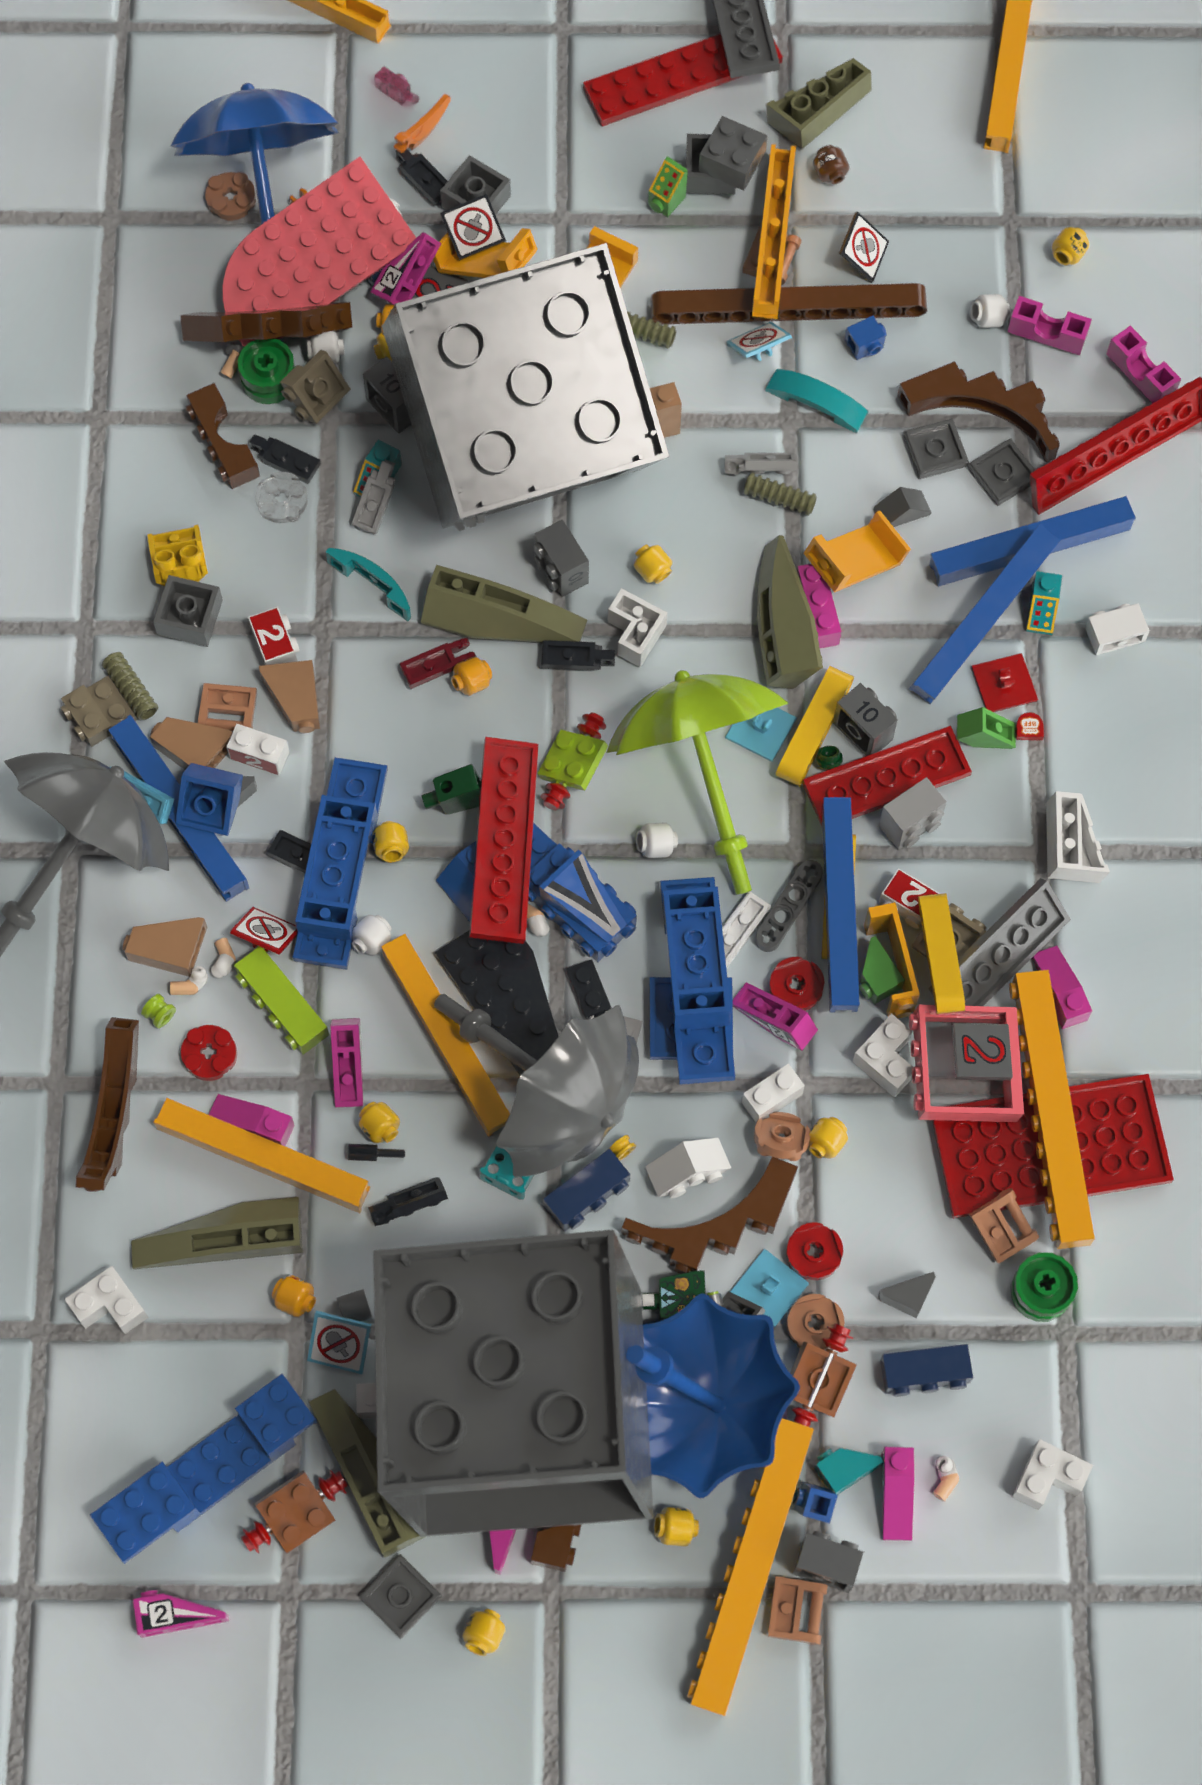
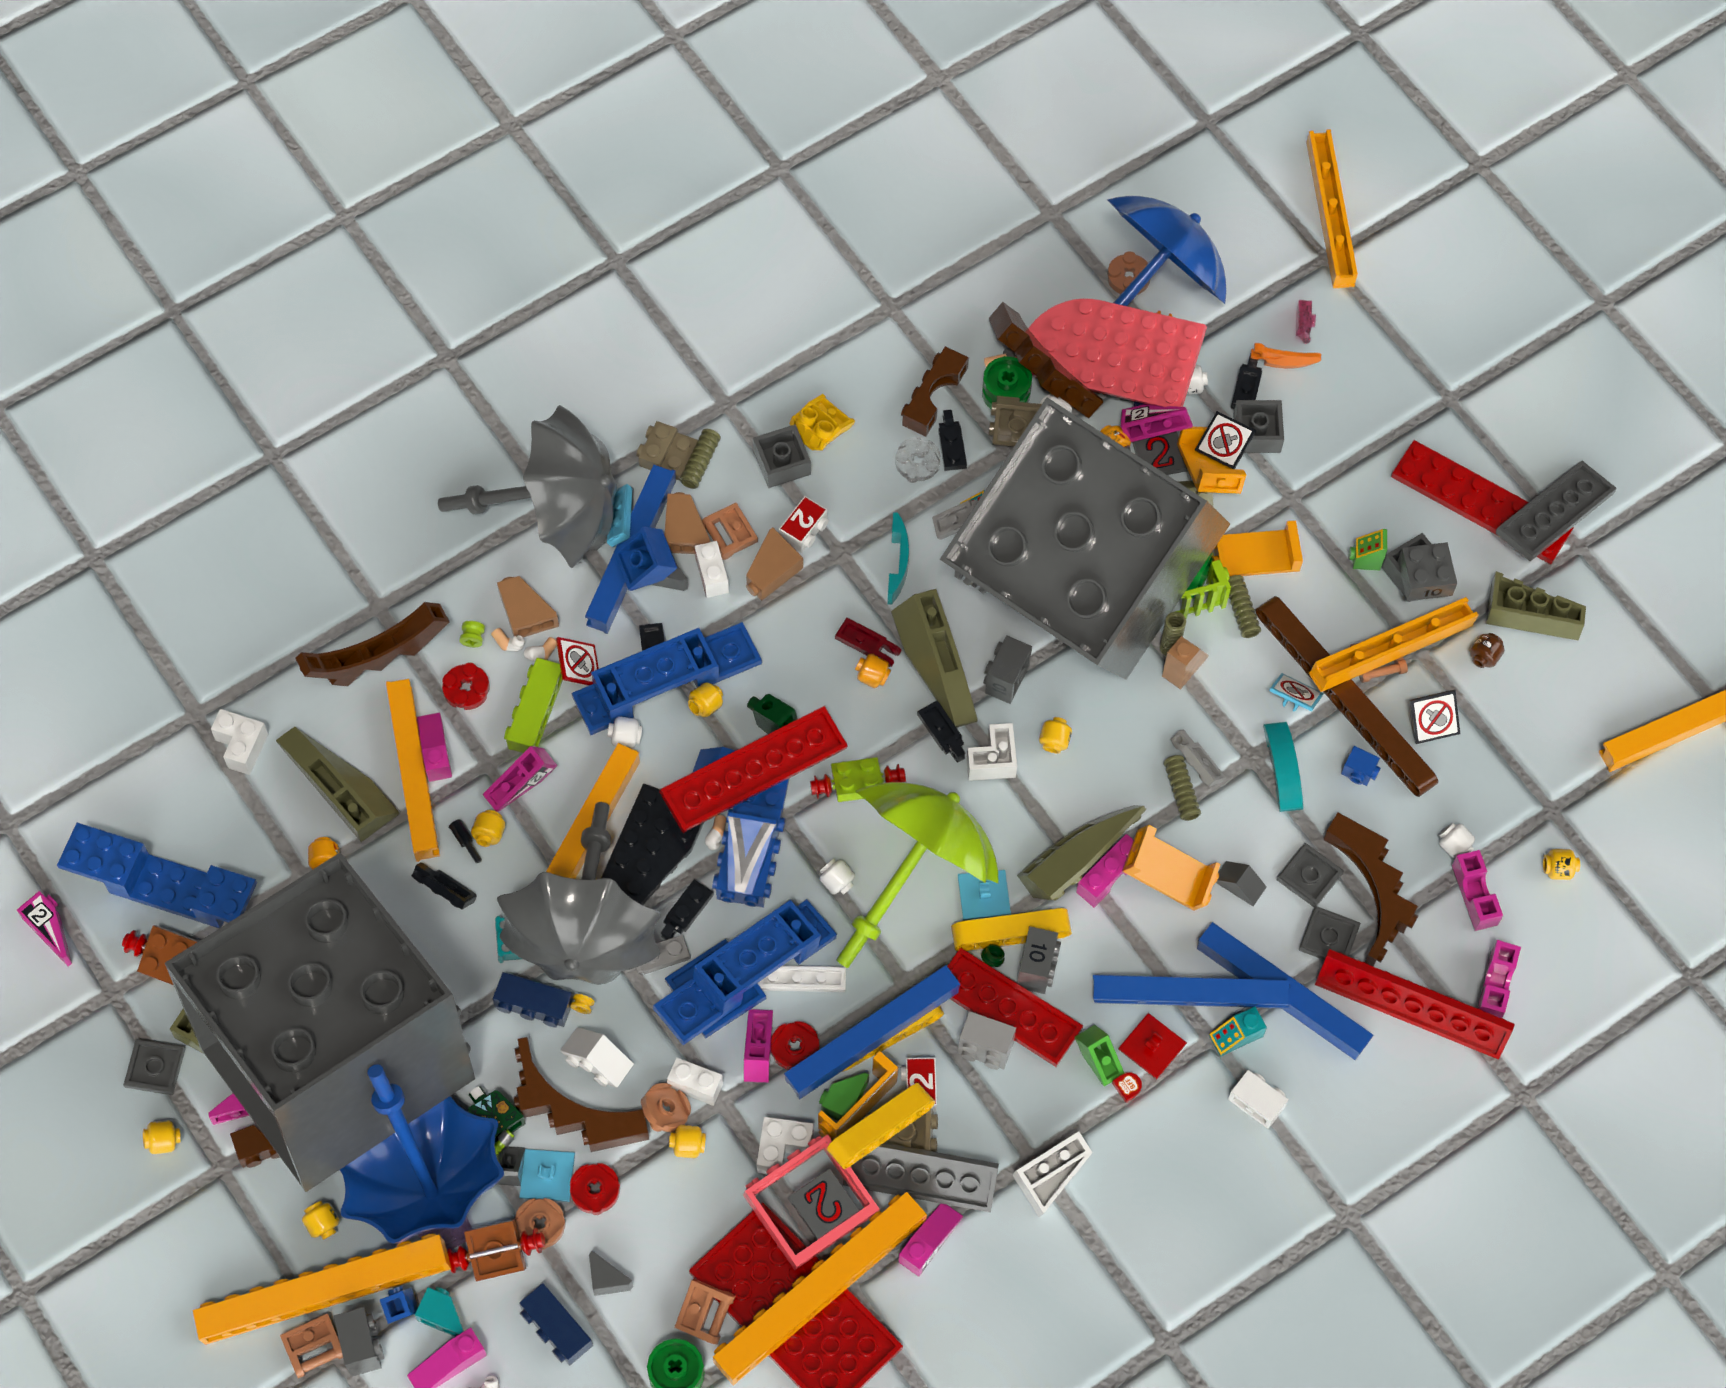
camera: 55 degrees right, 5 degrees down
(786, 904) = (854, 998): dark grey beam -> none

